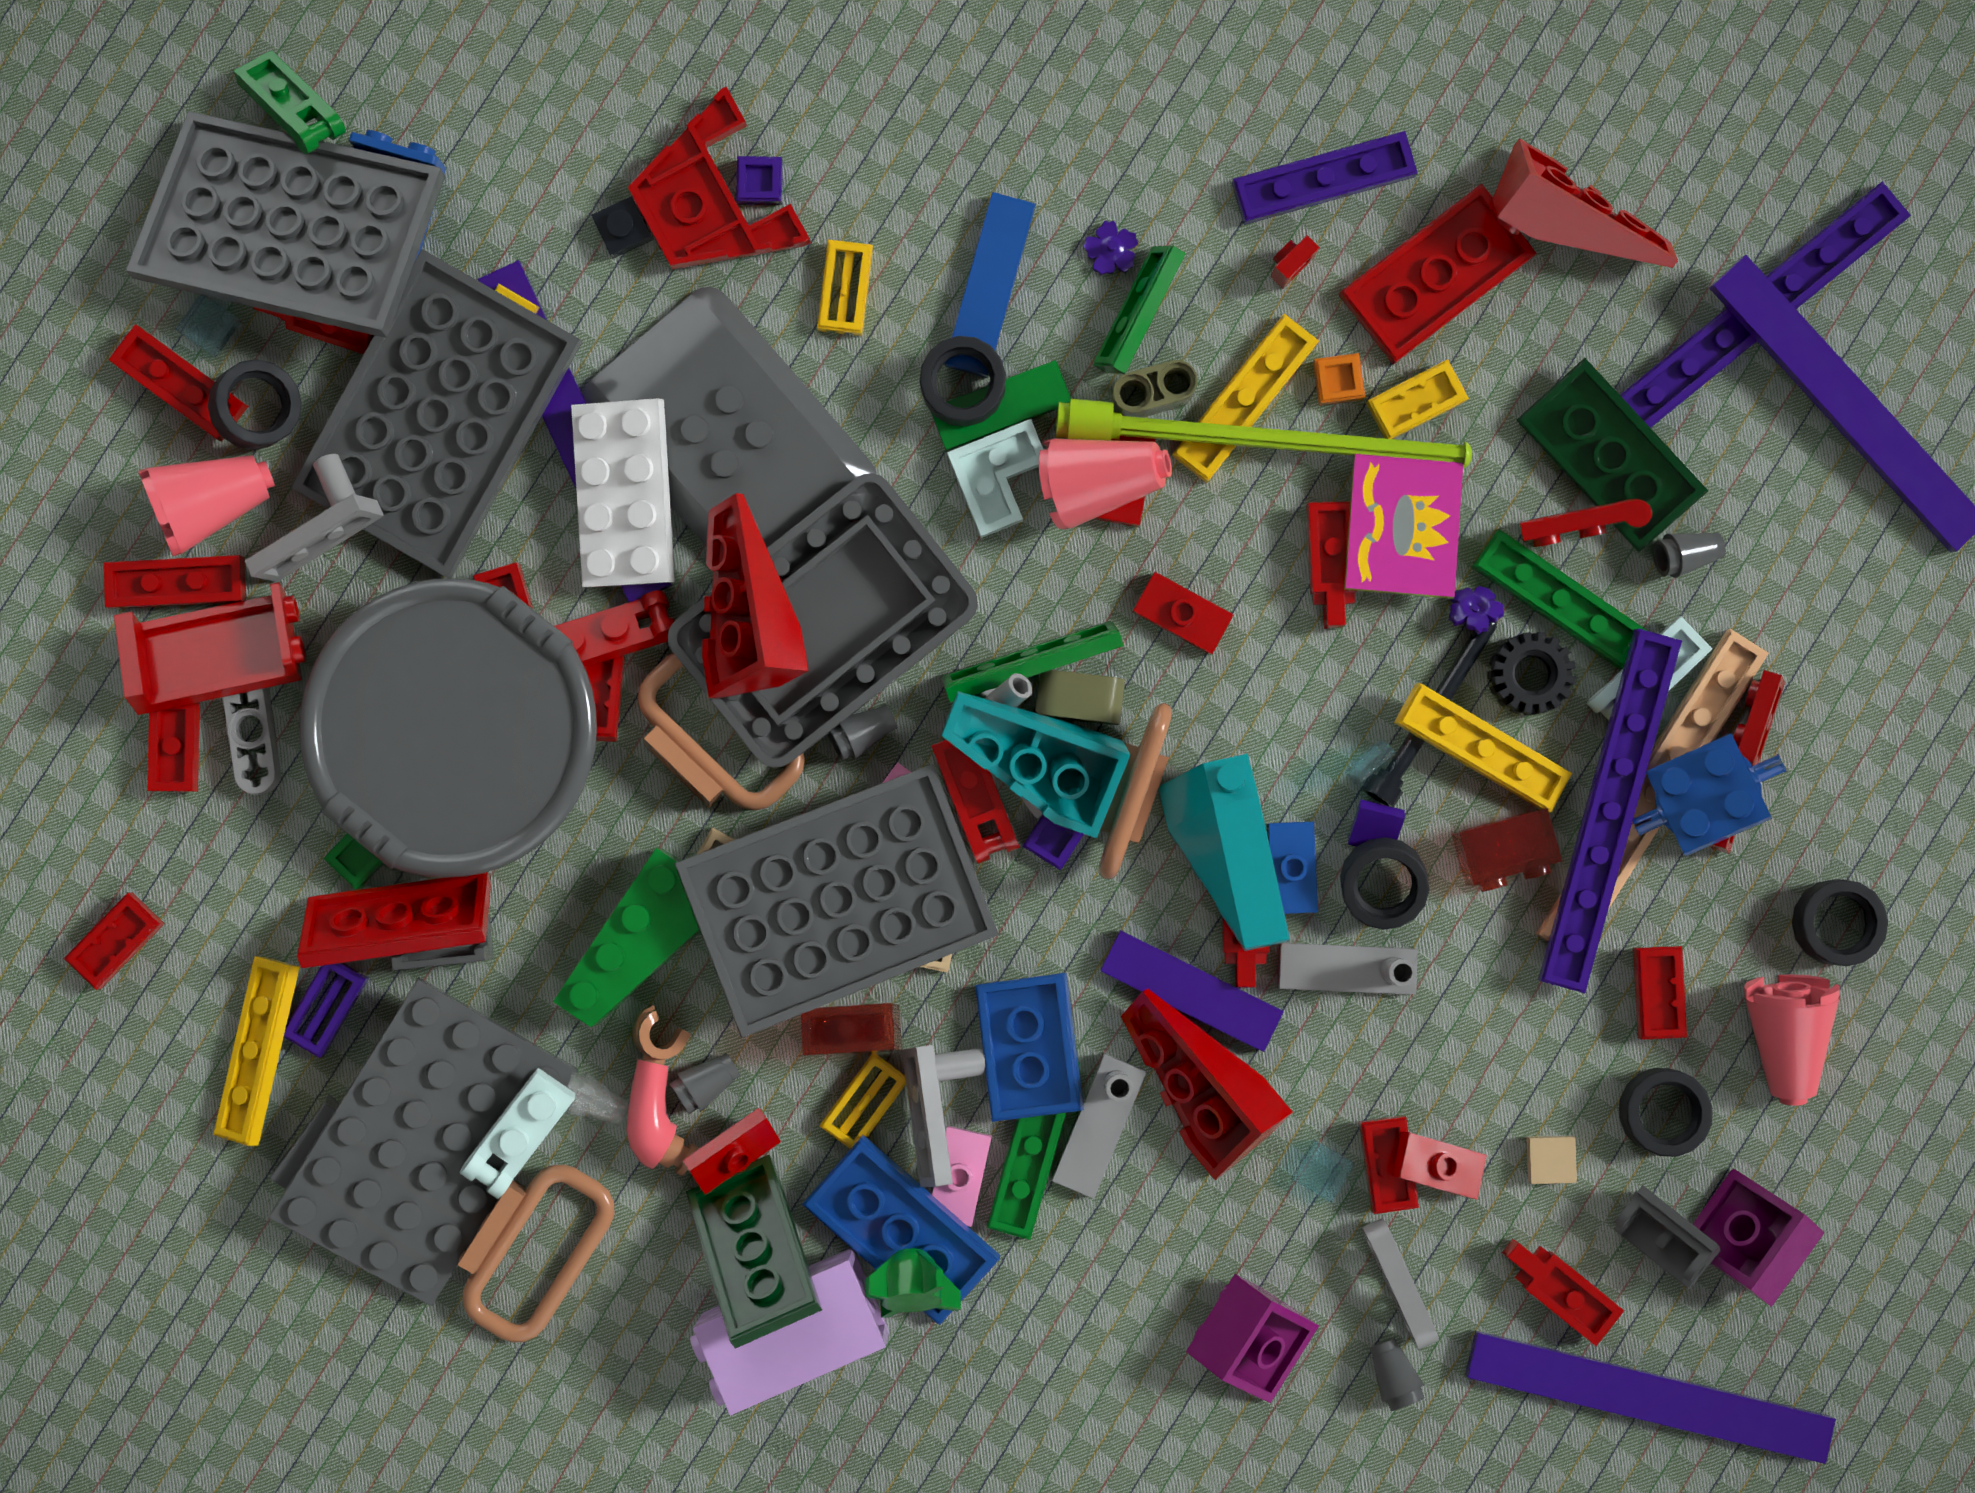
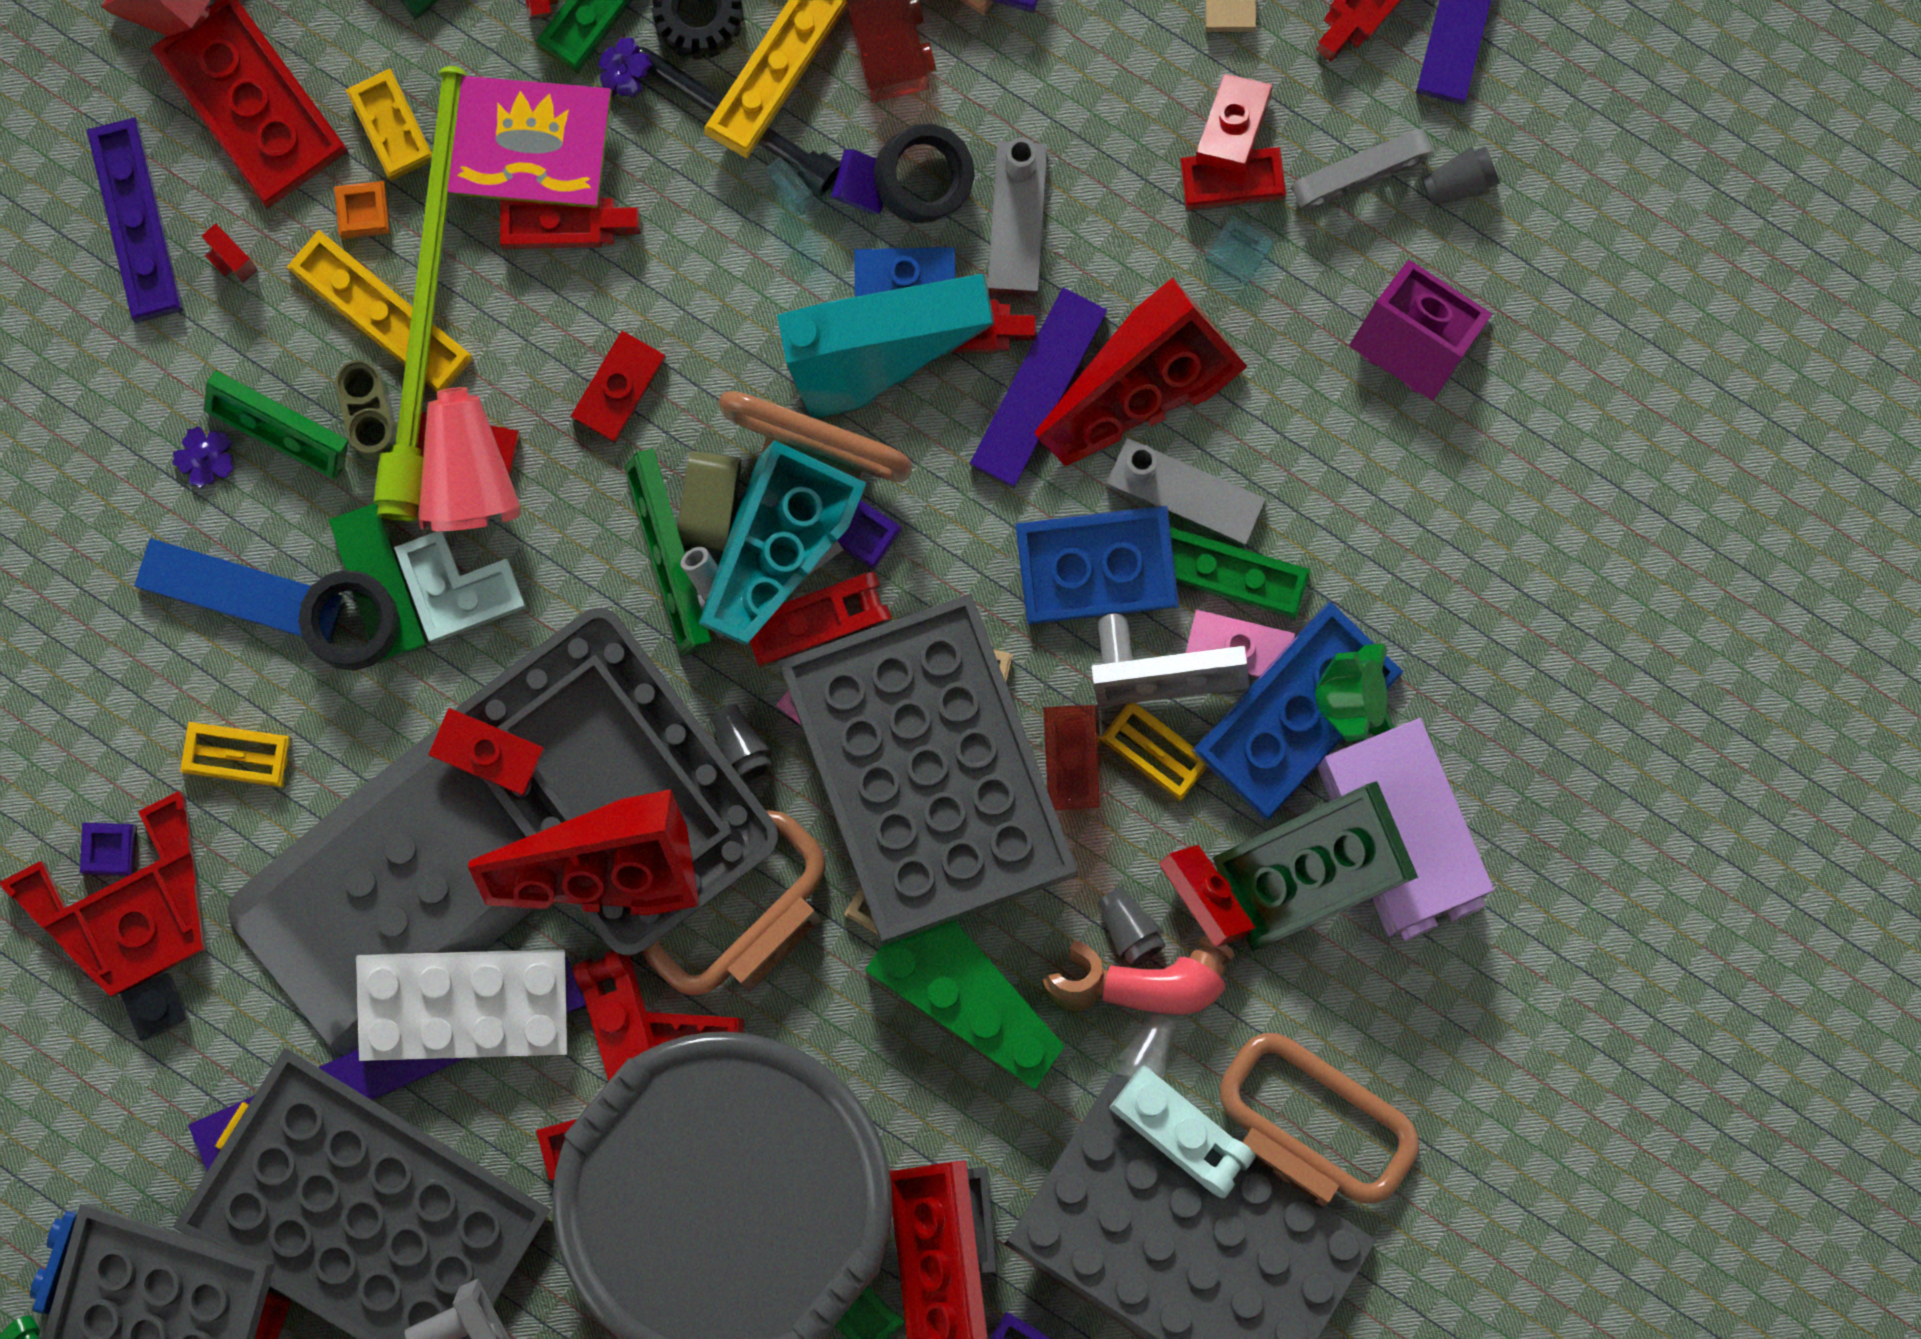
camera: 85 degrees left, 5 degrees down
(844, 506) = (486, 752): none -> red plate

